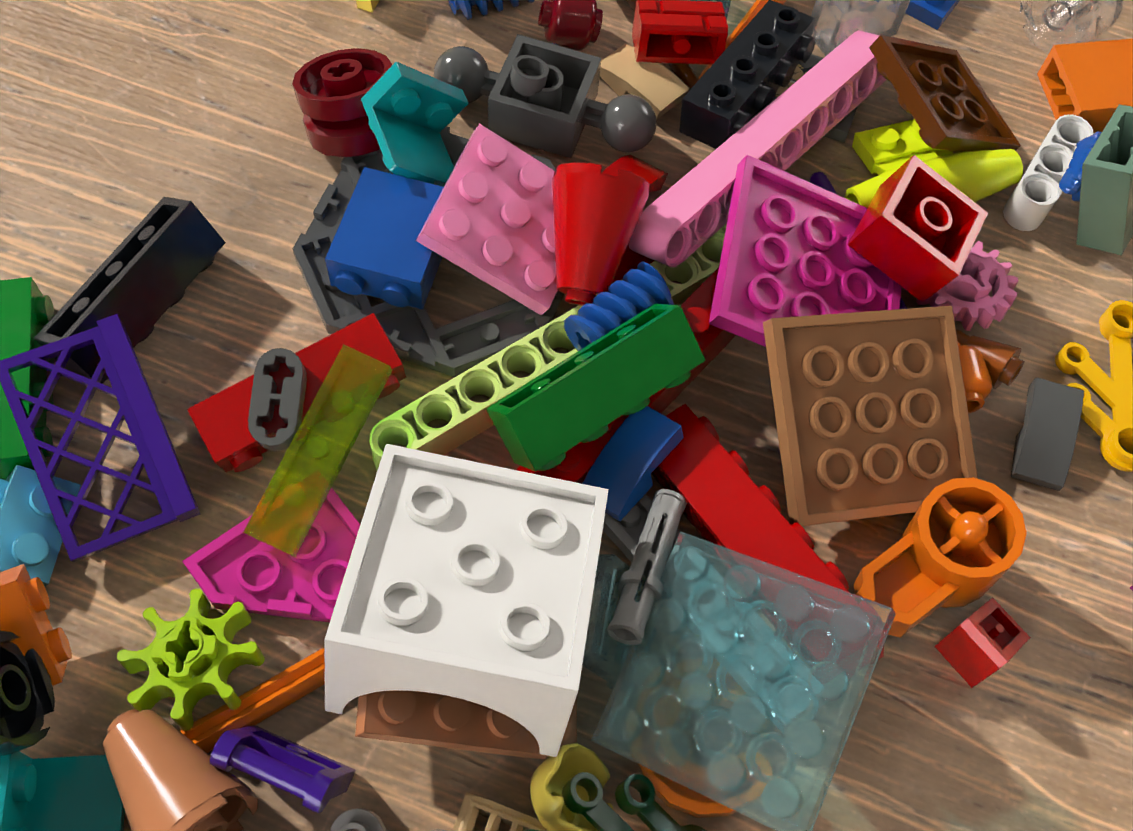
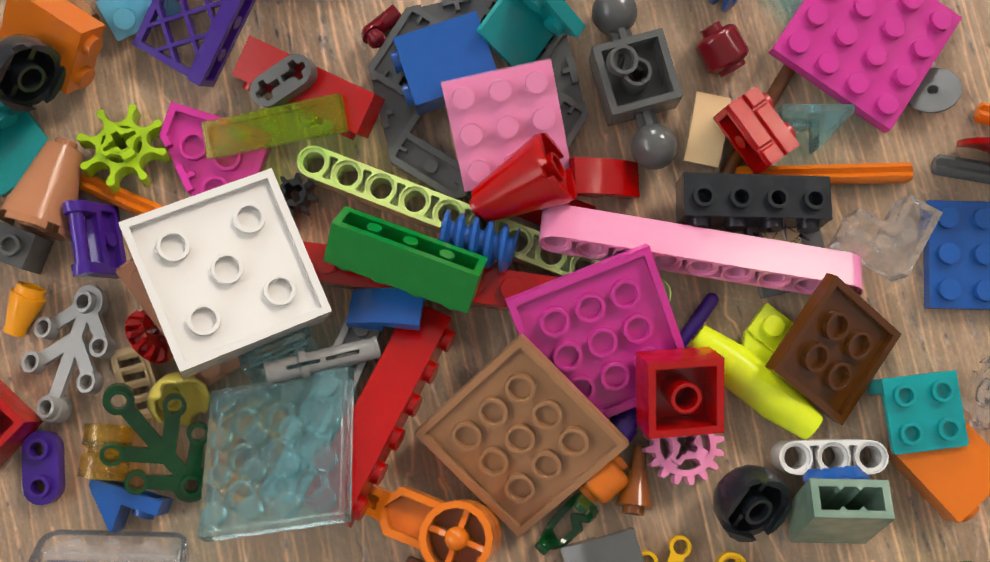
camera: 65 degrees right, 20 degrees up
(287, 290) = (374, 31): none -> dark red arm
(464, 775) = (148, 345): none -> red gear
(997, 476) = (549, 540): none -> dark green helmet
(1047, 67) = (922, 411): none -> teal bracket
(1062, 254) = (751, 502): none -> black cylinder

